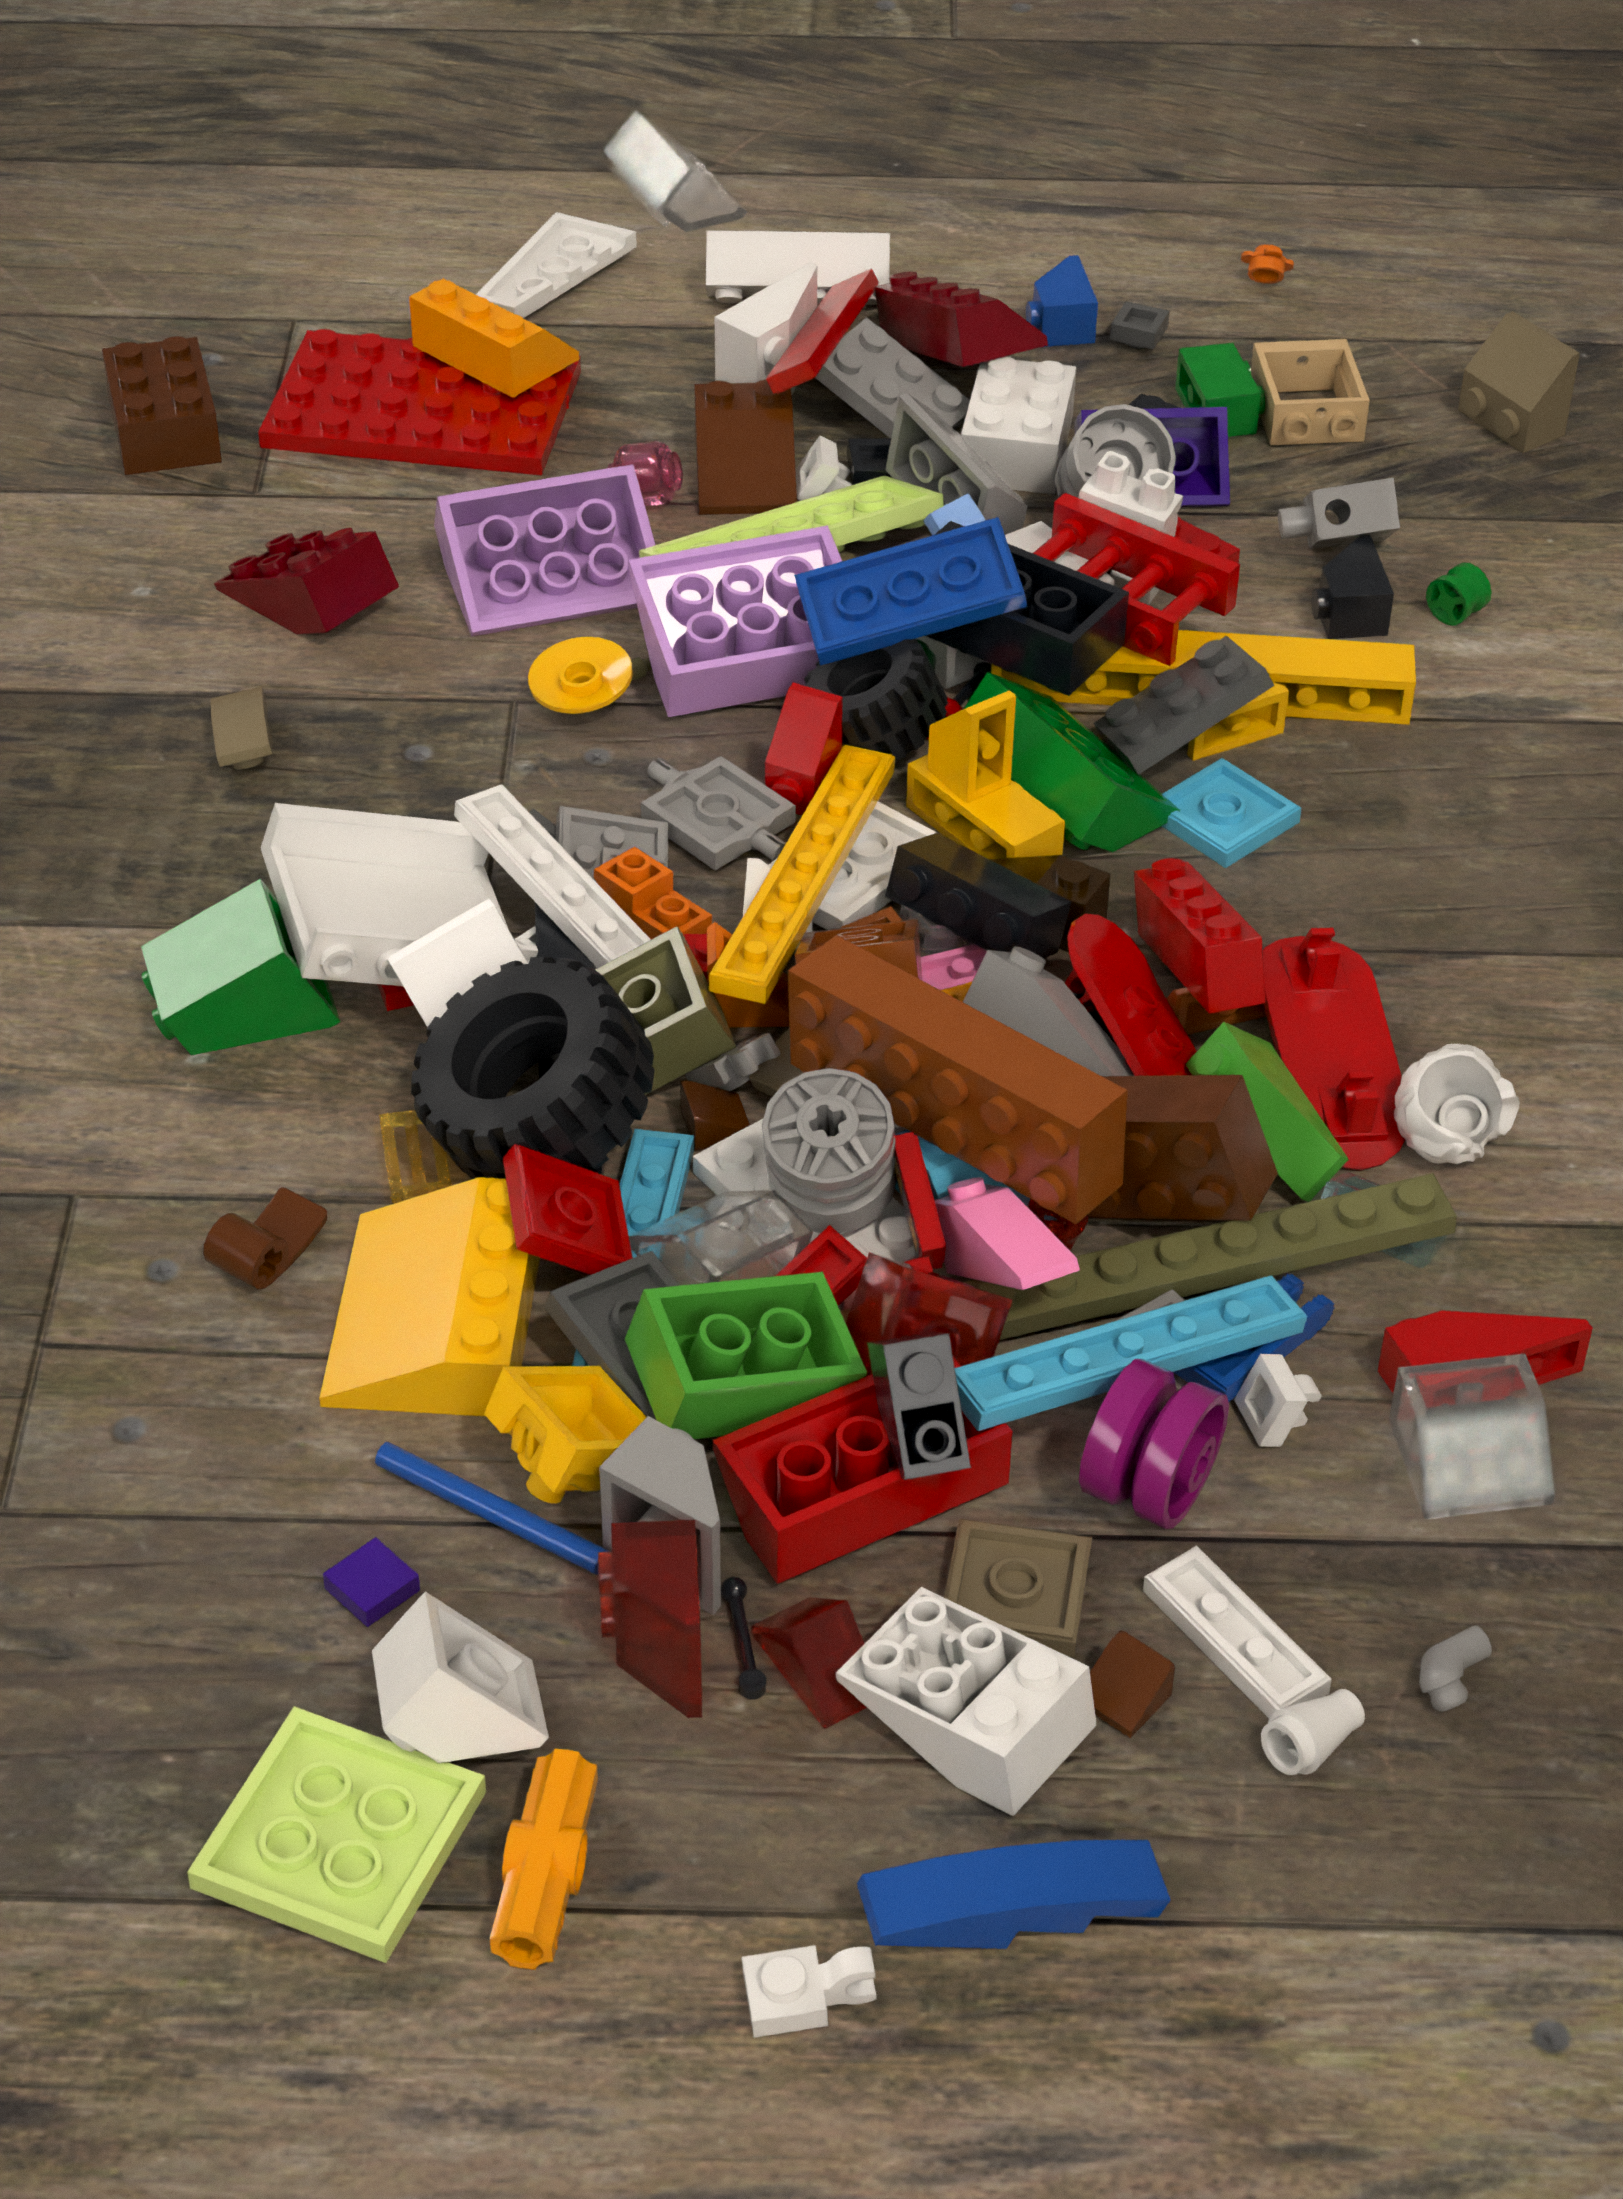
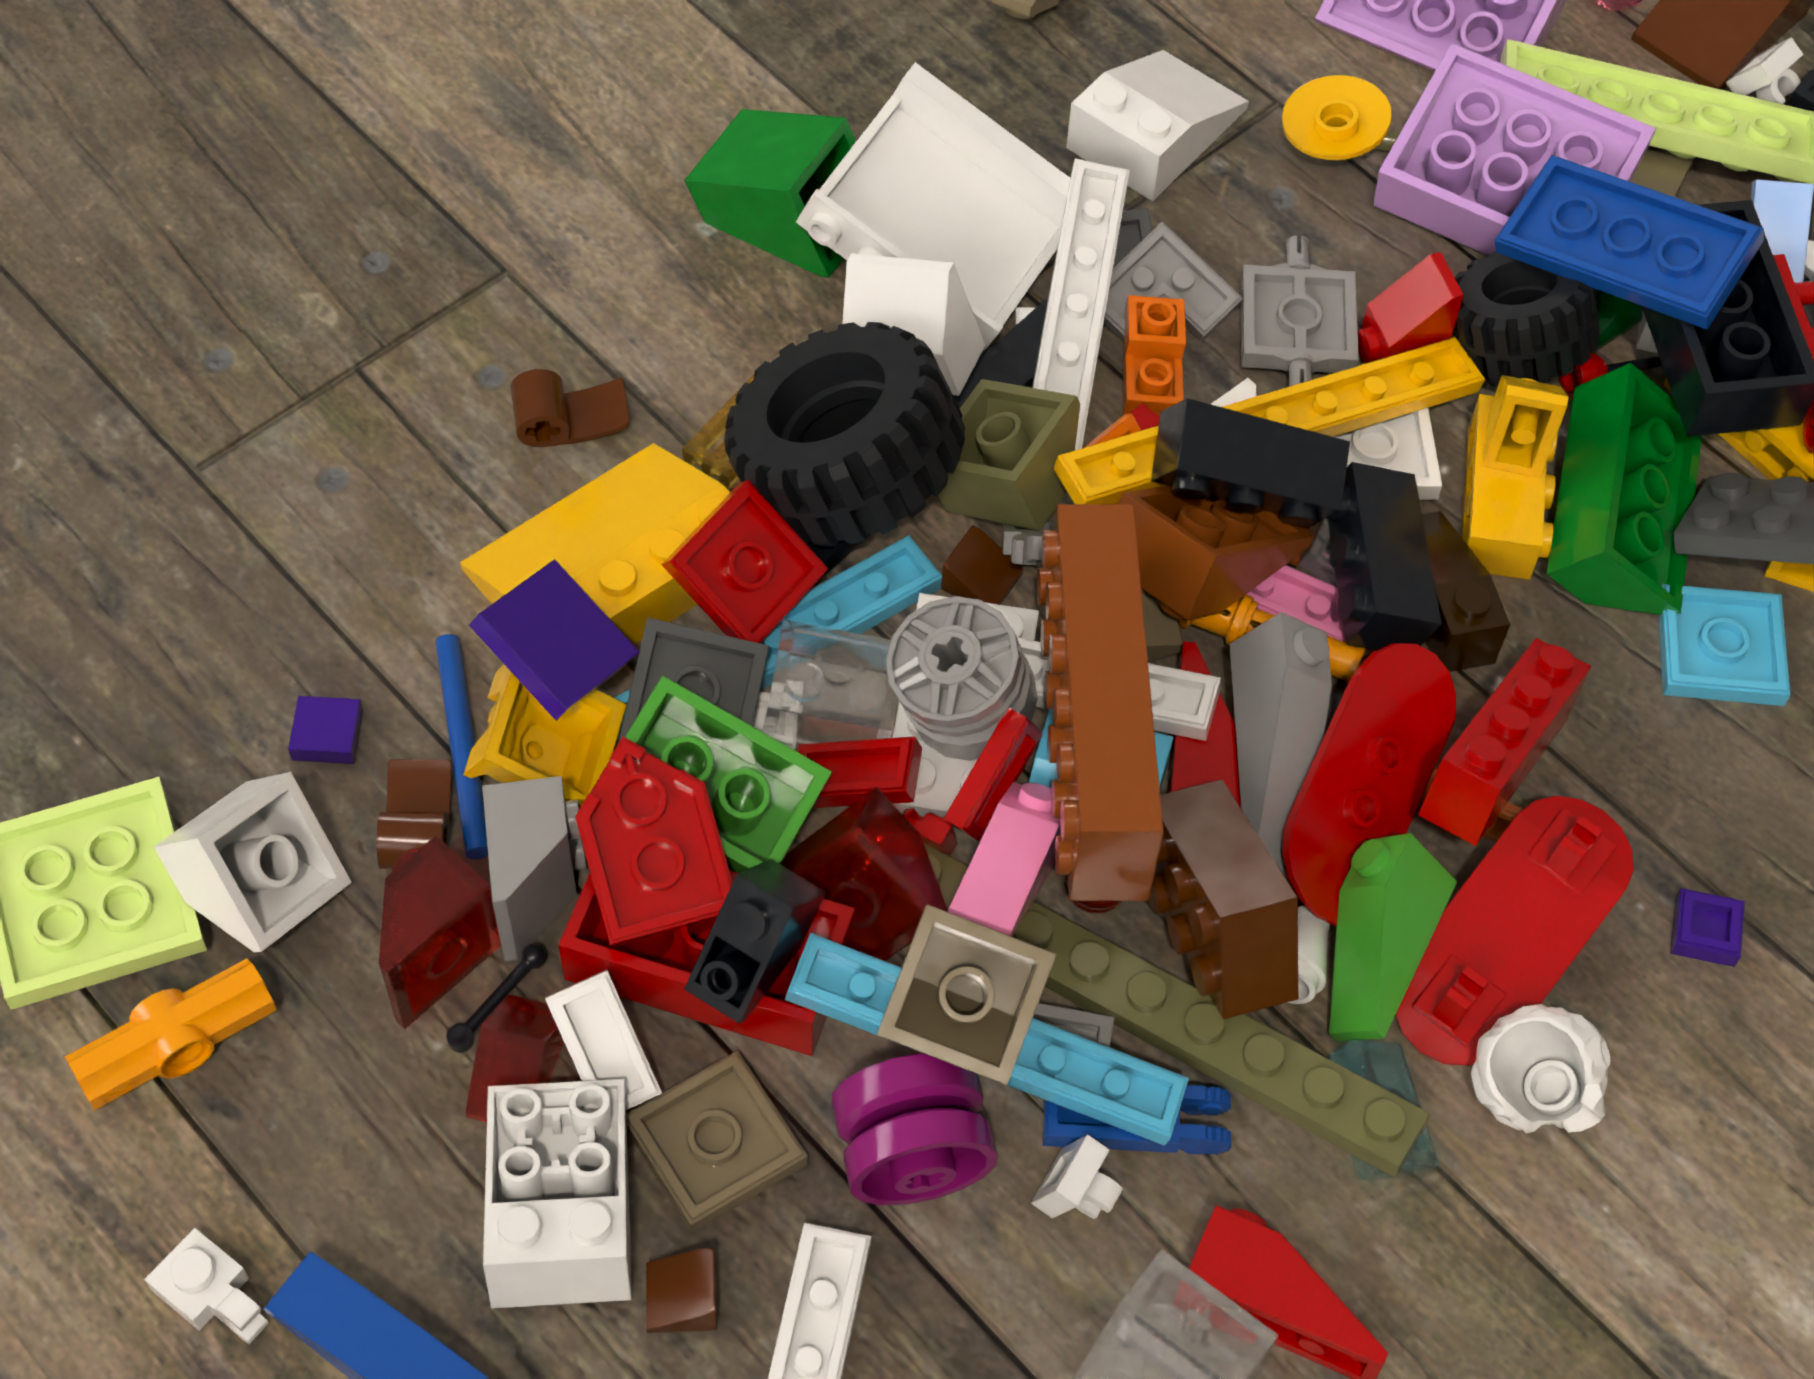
camera: 45 degrees right, 15 degrees up
(446, 761) = (1151, 119): none -> white slope
(518, 1343) = (554, 639): none -> dark purple tile
(523, 1583) = (415, 807): none -> reddish brown panel
(776, 1402) = (651, 847): none -> red tile
(839, 887) = (1250, 462): none -> black brick
(865, 1573) = (603, 1037): none -> white tile
(1102, 1304) = (966, 994): none -> dark tan slope
(1423, 969) = (1707, 927): none -> dark purple tile

